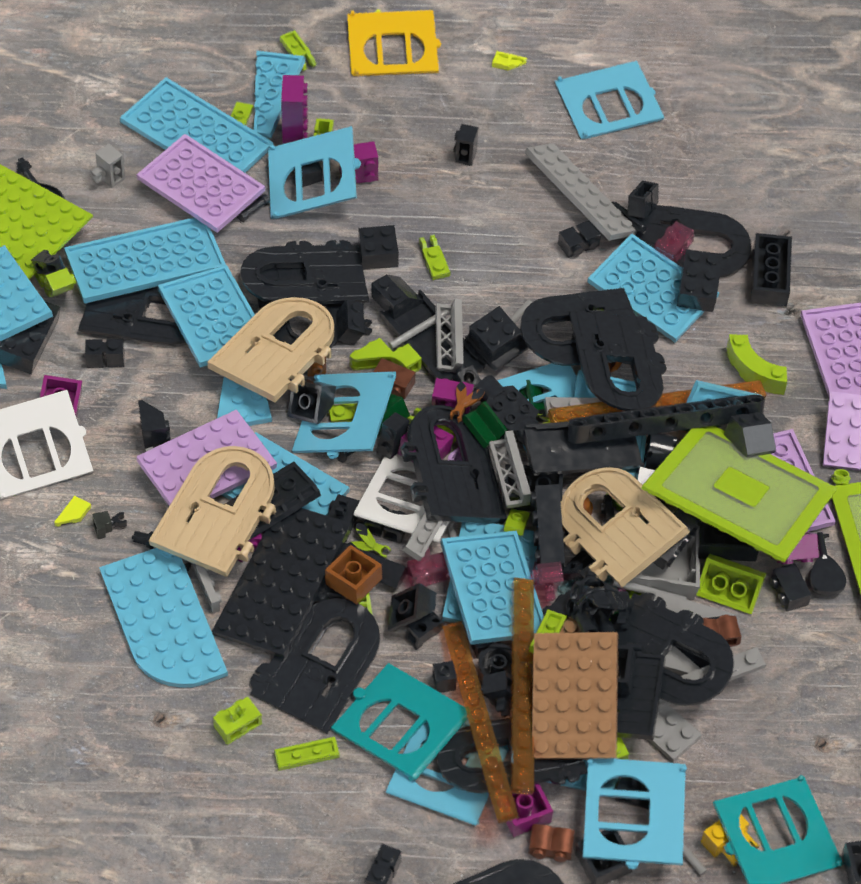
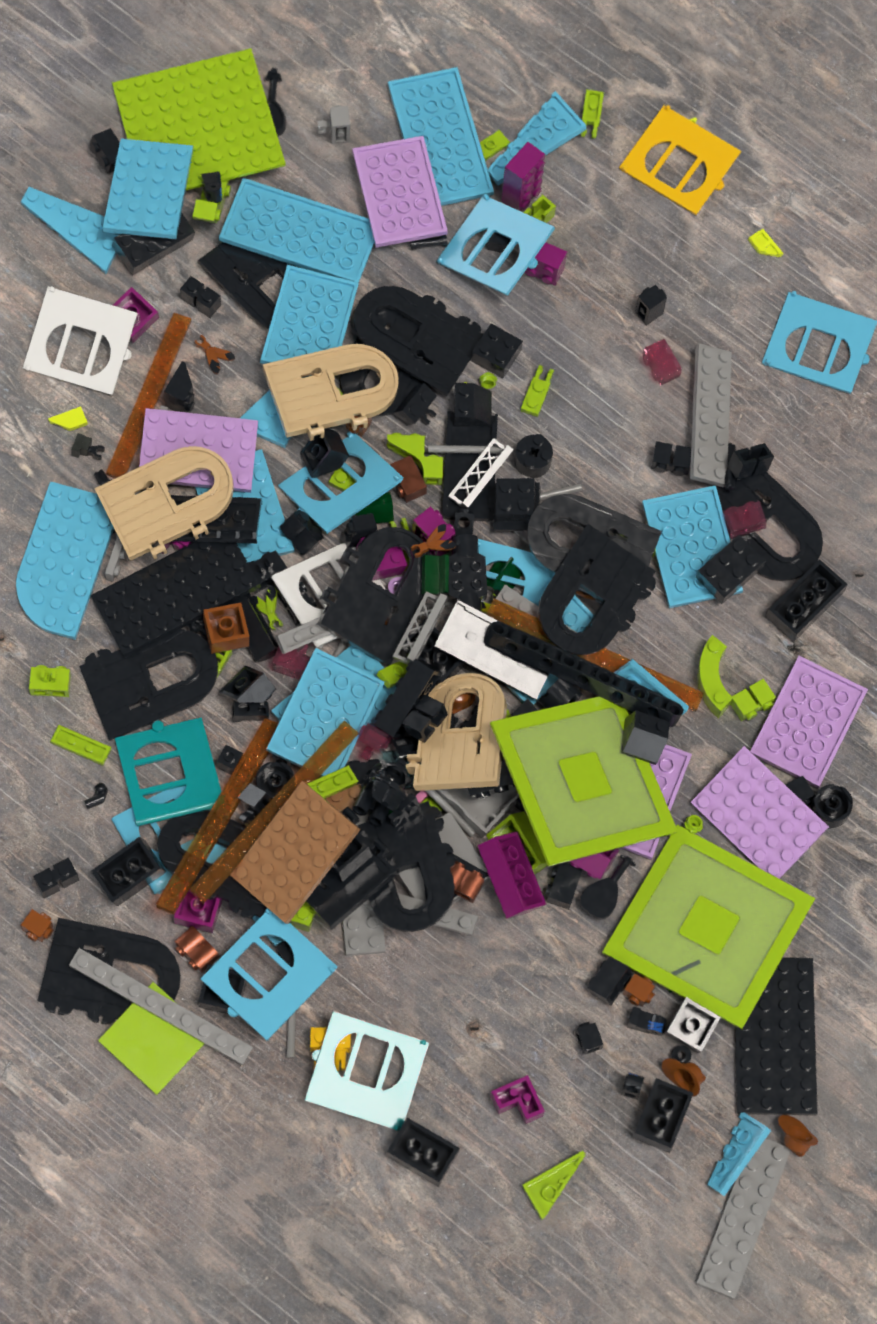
camera: 35 degrees right, 15 degrees up
(126, 453) = (149, 395): none -> clear orange plate
(151, 390) = (213, 353): none -> dark orange piece
(346, 467) = (302, 532): none -> black brick
(359, 782) = (99, 796): none -> black arm
(390, 270) = (488, 380): none -> lime plate
(442, 818) = (128, 871): none -> black brick
(476, 299) = (525, 455): none -> black brick
(509, 179) = (662, 362): none -> clear pink brick
(577, 525) = (426, 712): none -> black piece
(749, 602) = (511, 875): none -> magenta brick
(799, 361) = (748, 703): none -> lime piece

